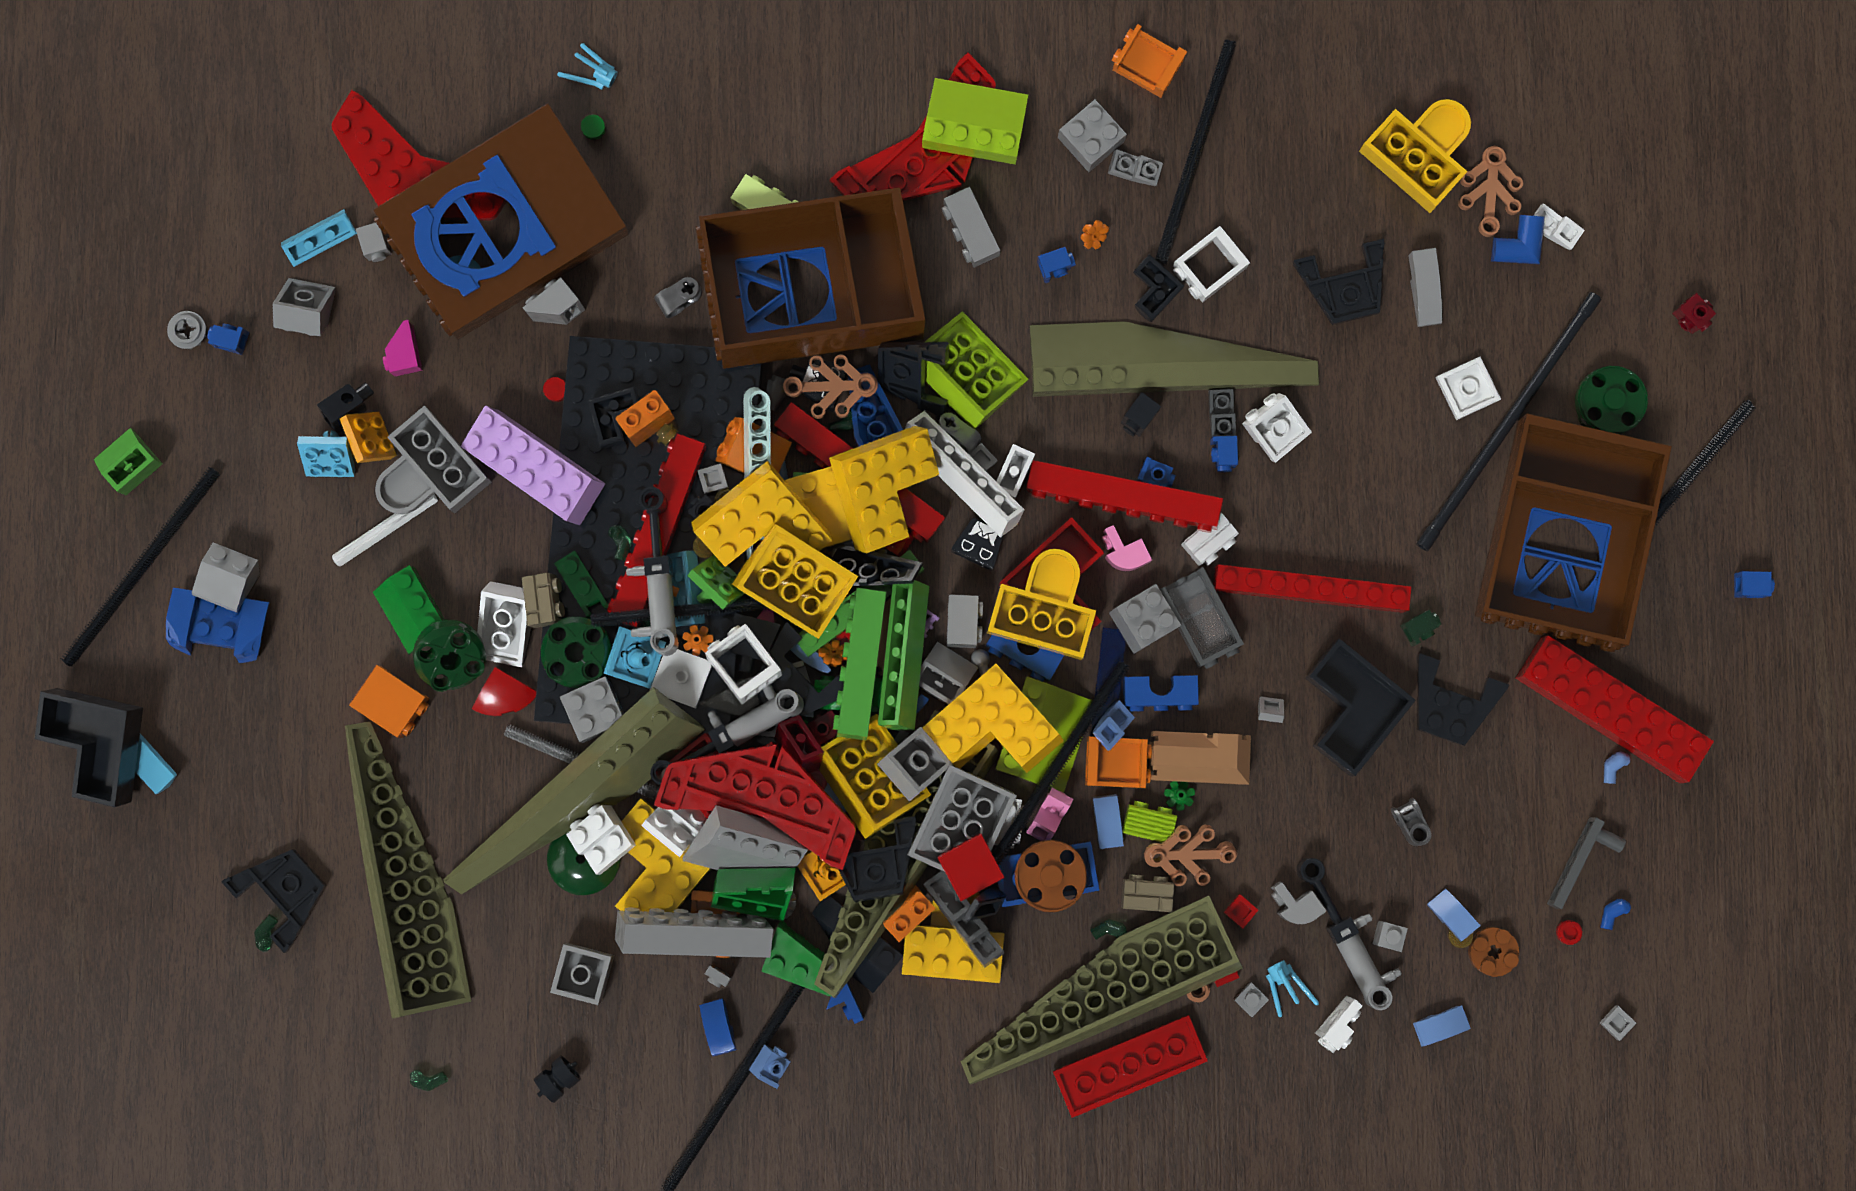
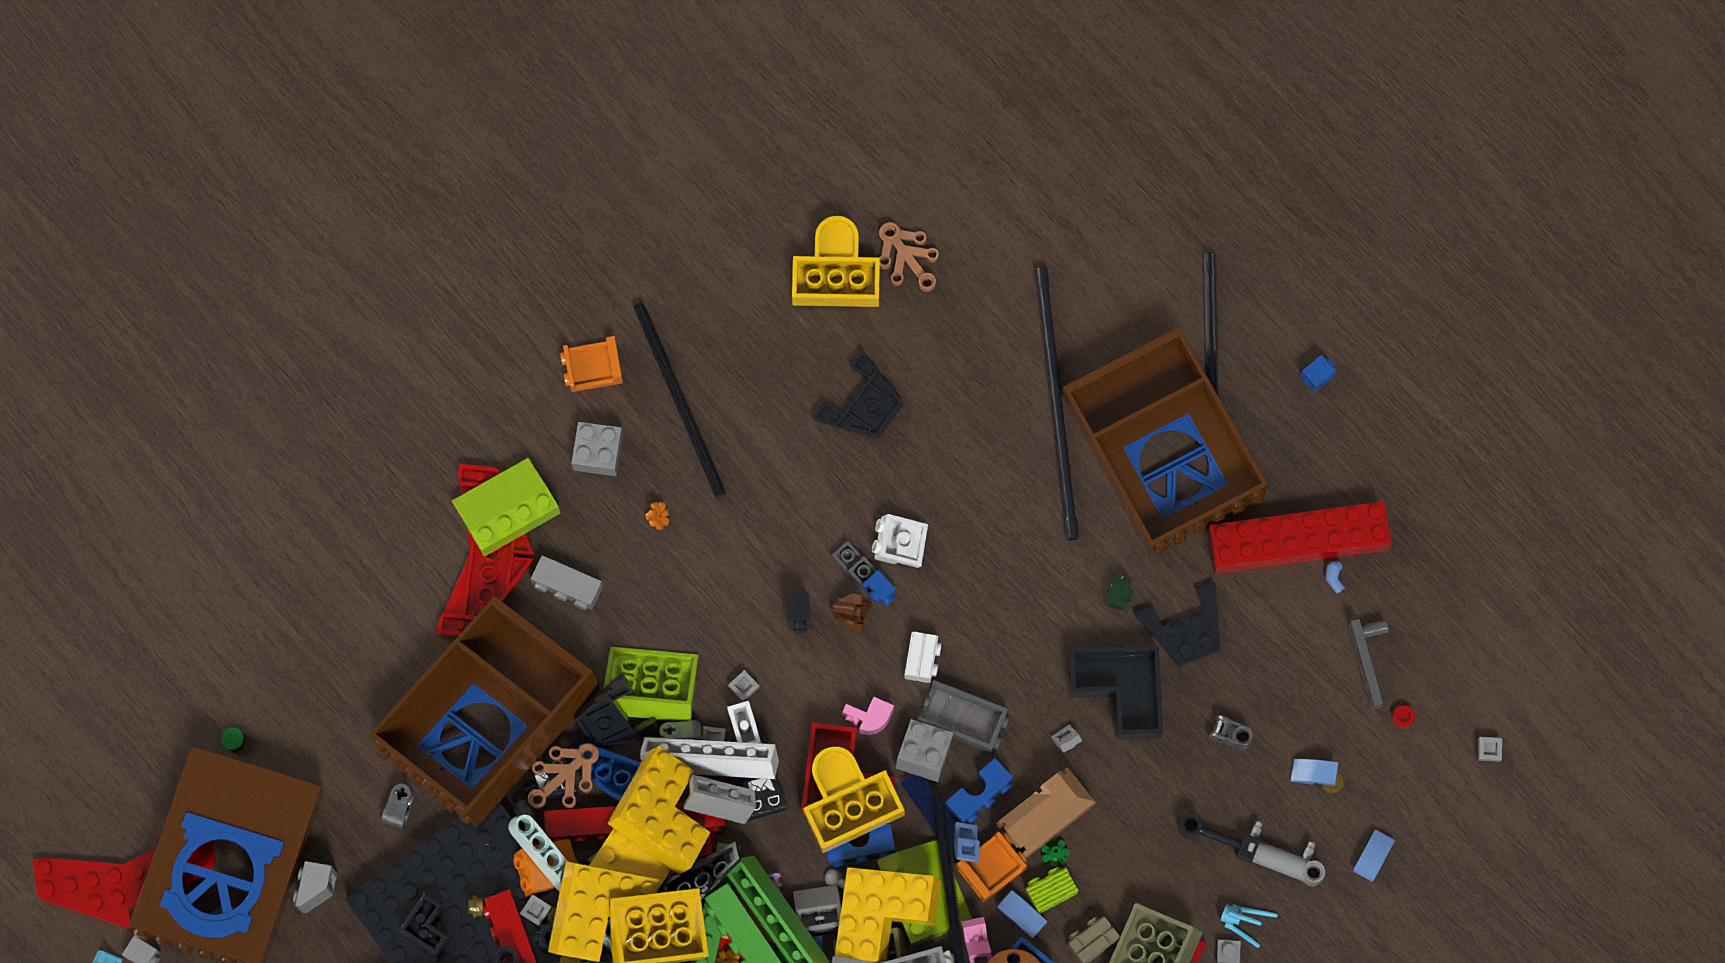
camera: 35 degrees left, 10 degrees down
(554, 389) = (365, 947): red tile -> none
(604, 73) = (209, 694): medium azure plant -> none
(645, 418) = (452, 907): orange panel -> none
(754, 194) = (393, 688): yellowish green slope -> none
(842, 425) = (594, 796): clear green arm -> none
(940, 516) = (720, 799): none -> light grey panel
(963, 621) = (798, 860): light grey brick -> none
(1042, 437) = (744, 686): none -> light grey plate
(1055, 263) = (648, 558): blue brick -> none
(1125, 495) = (835, 677): red brick -> none
(1135, 168) = (646, 446): light grey slope -> none
(1147, 473) = (842, 652): blue brick -> none
(1151, 359) = (769, 571): olive wedge -> none
(1162, 287) = (737, 511): black brick -> none
(1185, 451) = (851, 611): none -> reddish brown brick
(1188, 853) = (1095, 887): nougat plant -> none
(1229, 250) = (760, 447): white window -> none
(1240, 911) = (1167, 896): red plate -> none
(1297, 911) = (1207, 860): light grey brick -> none
(1312, 588) = (1021, 631): red brick -> none
(1334, 1031) = (1303, 919): white plate -> none
(1389, 936) = (1284, 824): light grey brick -> none
(1426, 287) = (920, 359): light grey slope -> none
(1468, 388) = (1009, 403): white plate -> none
(1501, 939) = (1367, 786): dark orange plate -> none
(1526, 247) = (964, 276): blue brick -> none
(1559, 229) = (973, 245): white slope -> none
(1611, 400) = (1113, 329): dark green piece -> none
(1612, 911) = (1419, 675): blue arm -> none
(1694, 314) = (1118, 224): dark red brick -> none

